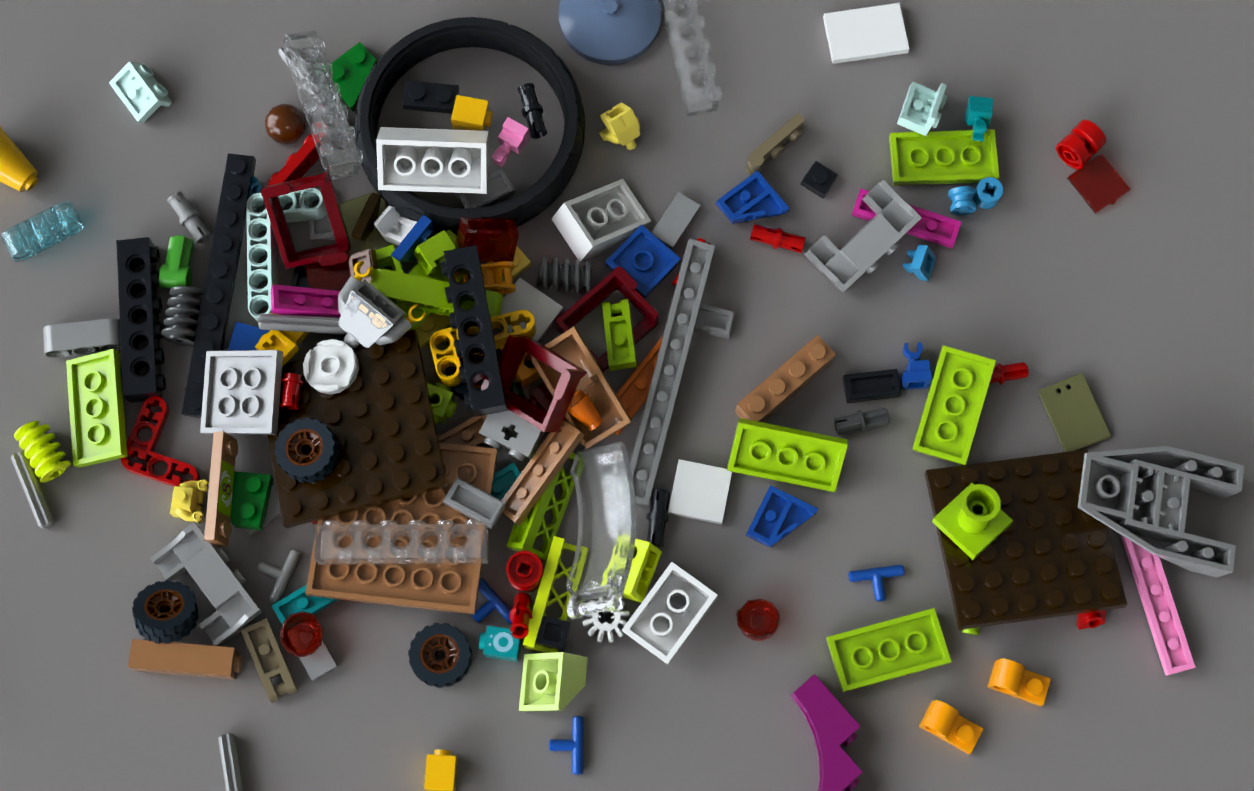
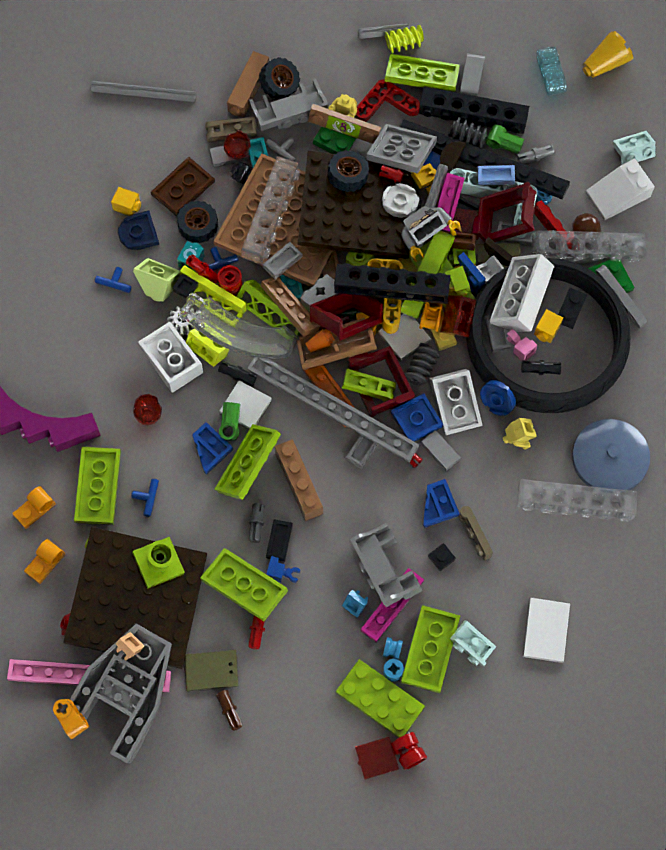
camera: 110 degrees right, 5 degrees down
(214, 92) = (620, 189): none -> white slope
(230, 324) = (452, 154): none -> dark brown tile
(247, 251) = (496, 175): none -> light blue tile
(341, 615) = (241, 172): none -> black gear
(385, 700) = (182, 186): none -> reddish brown tile
(396, 33) = (630, 307): none -> light grey beam
(480, 739) = (138, 231): none -> dark blue tile
(584, 162) = (498, 397): none -> blue tile
(735, 499) = (230, 418): none -> bright green piece
(777, 238) = (405, 512): red pin -> none
(978, 114) = (455, 683): teal piece -> none
(1027, 200) = (380, 699): none -> lime plate
(1115, 500) = (129, 645): none -> light nougat tile
(1116, 373) = (229, 710): none -> reddish brown axle
(1225, 551) = (72, 720): none -> light orange piece

